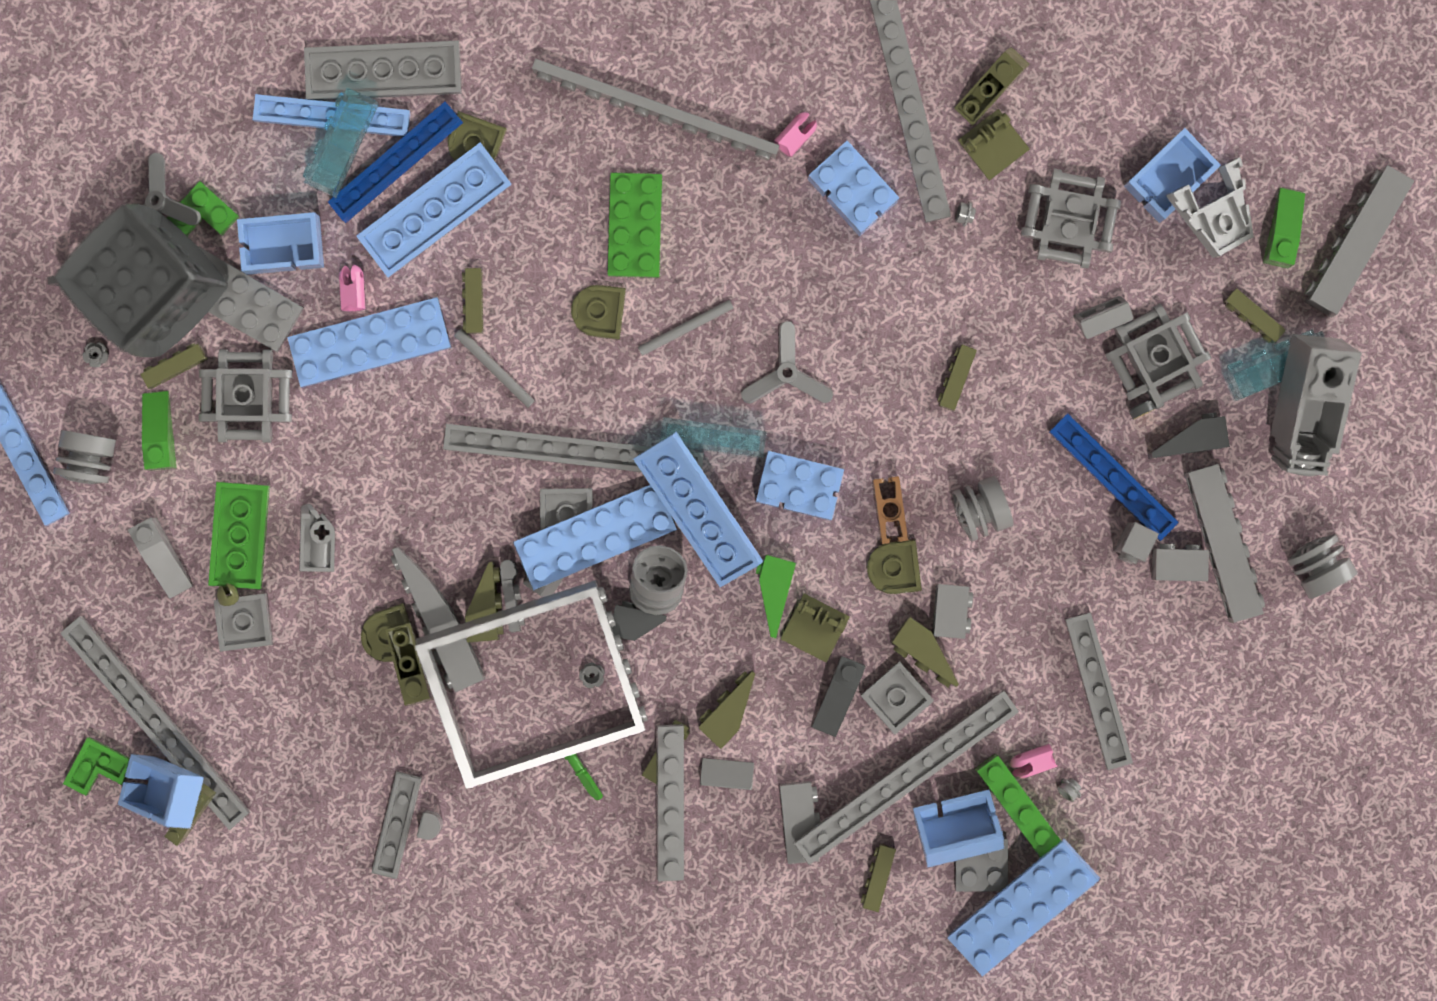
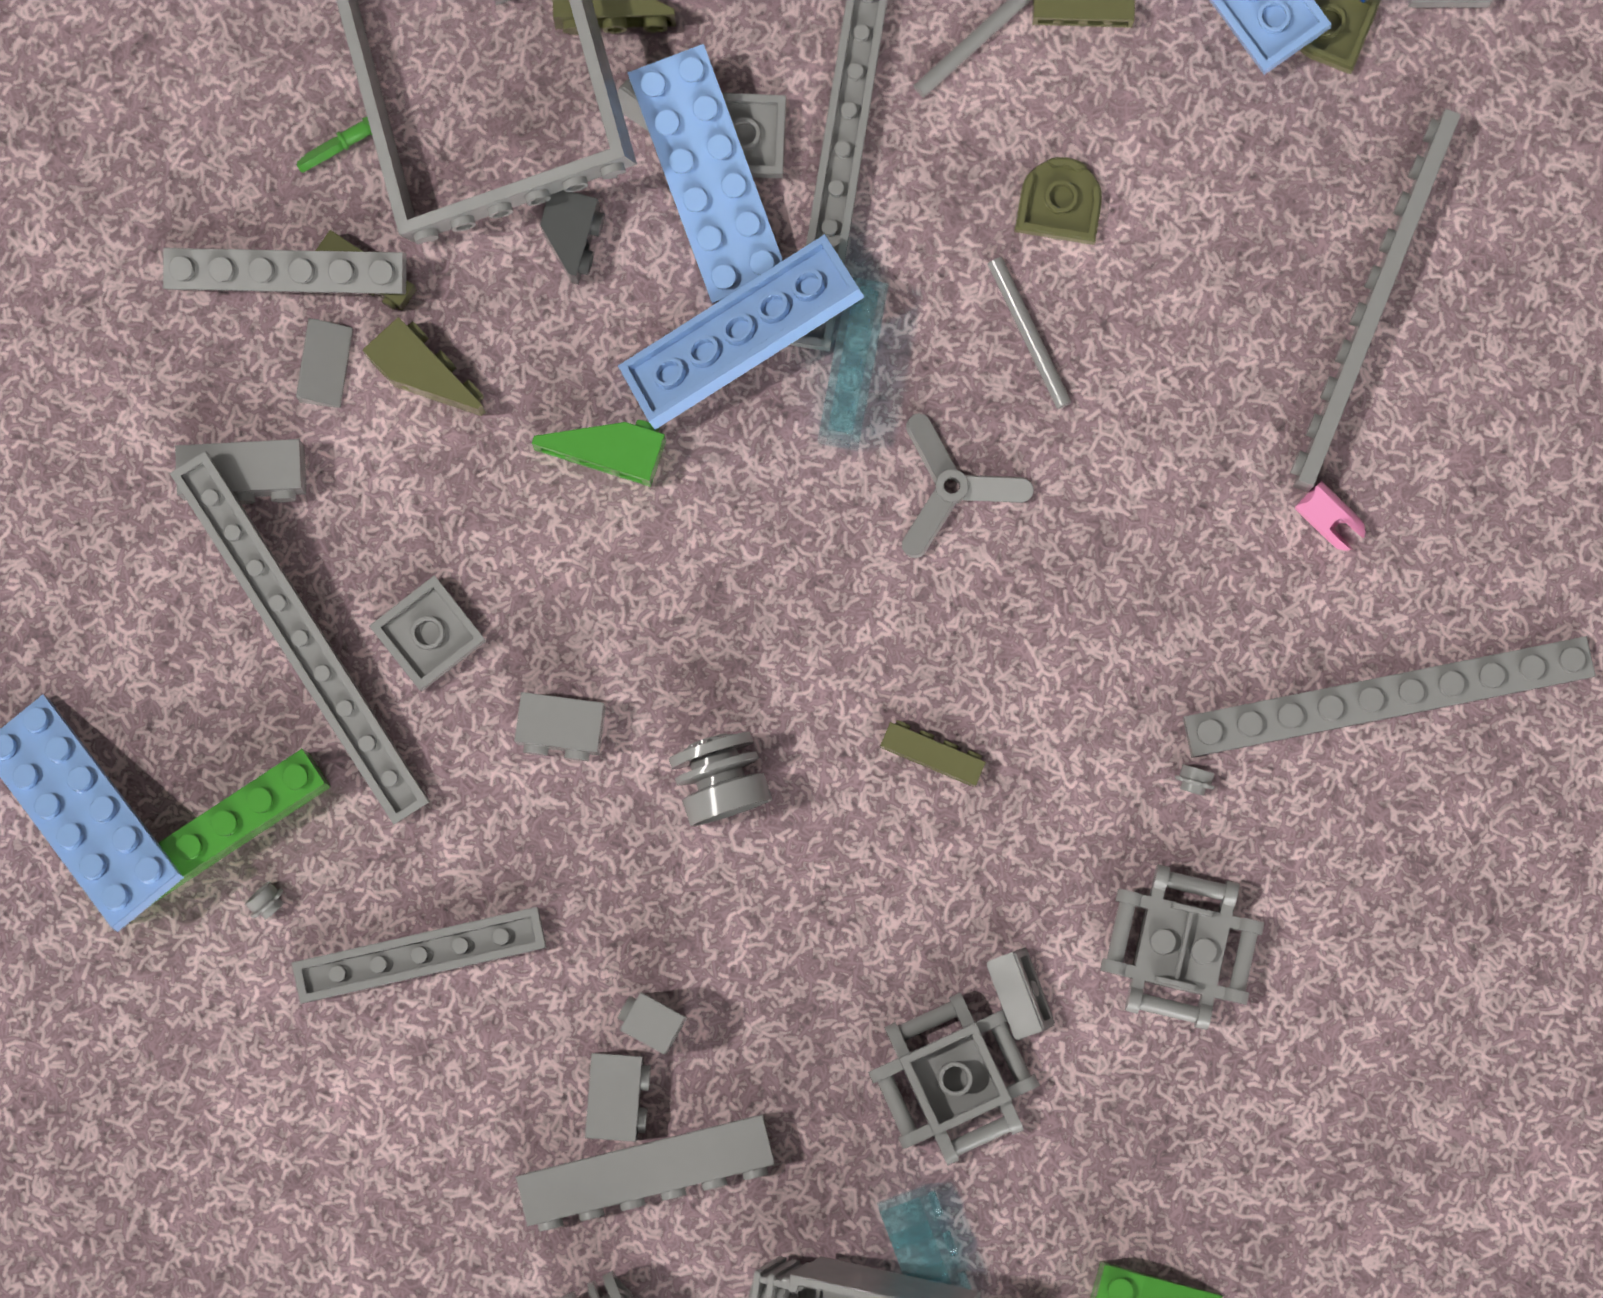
camera: 90 degrees right, 5 degrees down
(511, 592) = (627, 44): light grey hinge -> none
(589, 682) = (484, 156): light grey plate -> none
(635, 225) = (1194, 262): bright green plate -> none
(658, 580) = (651, 258): light grey wheel -> none
(800, 484) = (771, 494): light blue piece -> none
(815, 627) = (546, 511): olive hinge -> none
(838, 696) = (438, 542): dark grey slope -> none
(854, 188) = (1241, 601): light blue piece -> none
(879, 876) = (144, 591): olive piece -> none
(895, 568) = (634, 642): olive tile -> none
(897, 501) = (712, 623): medium nougat piece -> none
(921, 645) = (512, 669): olive slope -> none
(964, 831) = (204, 722): light blue piece -> none
(983, 871) = (155, 754): light grey plate -> none
(992, 85) = (1402, 833): olive slope -> none
(993, 144) = (1305, 831): olive hinge -> none
(1037, 761) = (316, 853): bright pink piece -> none
(1113, 476) = (761, 997): blue plate -> none
(1142, 409) = (869, 1048): dark grey tile -> none
(1175, 166) = (1247, 1114): light blue piece -> none
(1199, 436) = (820, 1138): dark grey slope -> none
(1223, 221) = (1168, 1194): light grey wing -> none
(1254, 315) = (1013, 1241): olive piece -> none

